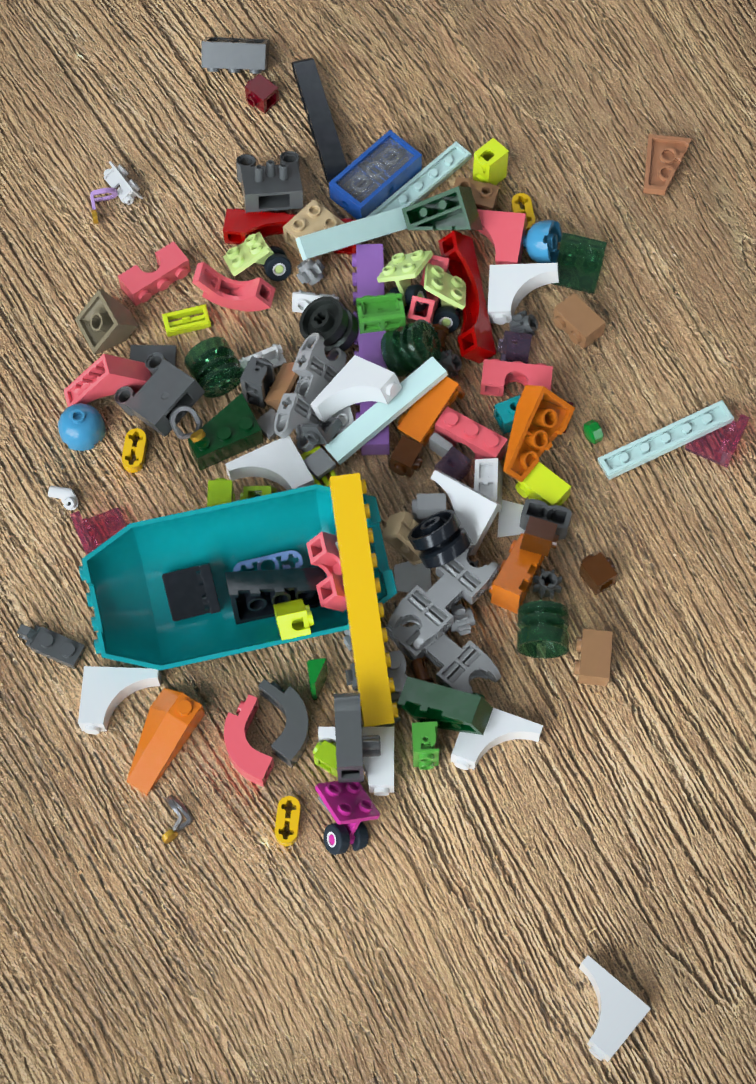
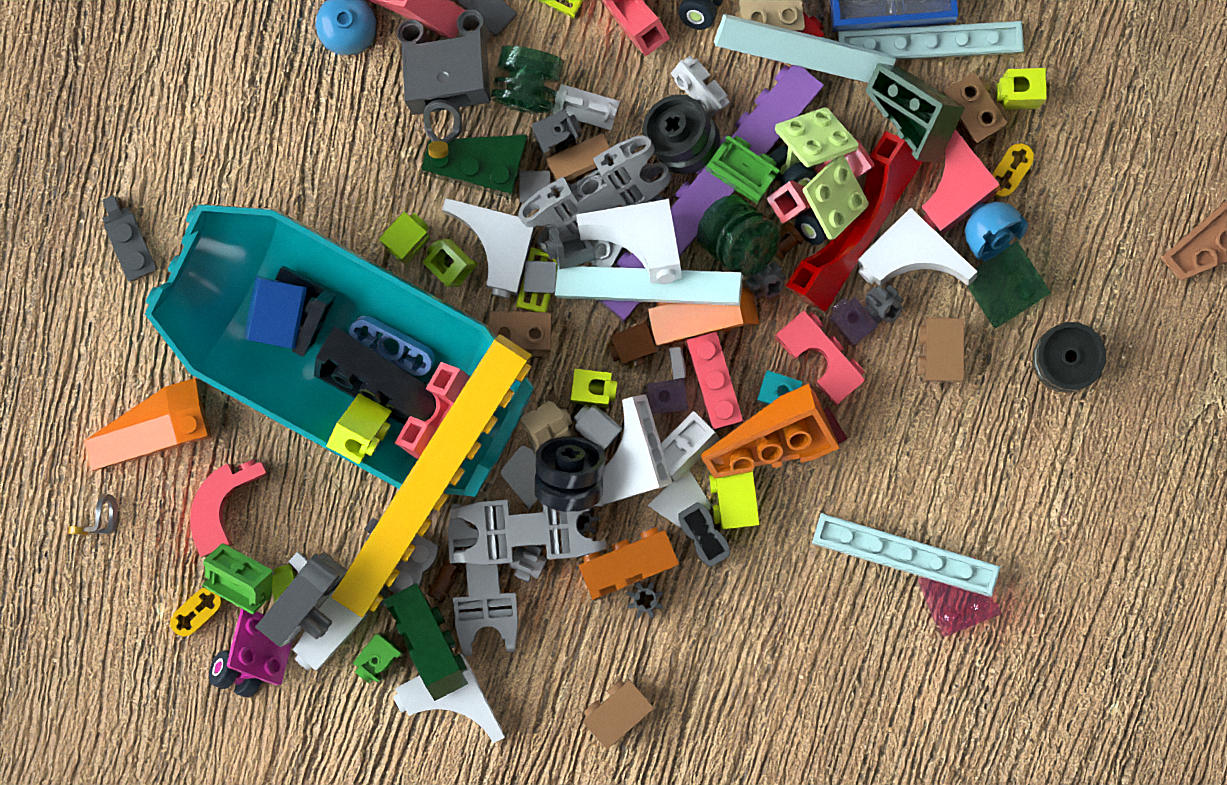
camera: 40 degrees right, 20 degrees up
(66, 495) = (269, 89): white arm -> none
(97, 529) = (266, 166): clear pink bracket -> none
(105, 689) = (125, 337): white arch -> none
(139, 451) = (371, 92): yellow beam -> none
(179, 600) = (275, 312): none -> blue slope
(295, 736) = (286, 525): dark grey arch -> none
(296, 769) = (237, 578): none -> bright green hinge
(310, 271) = (721, 56): light grey gear -> none
(317, 675) = (336, 501): green slope -> none
(404, 489) = (593, 388): none -> neon yellow brick
(539, 536) = (673, 553): reddish brown brick -> none
(543, 629) = (592, 645): clear green wheel -> none
(593, 431) = (841, 482): green tile -> none
(598, 572) = (705, 631): reddish brown brick -> none
(648, 270) = (1084, 346): none -> pearl dark grey wheel

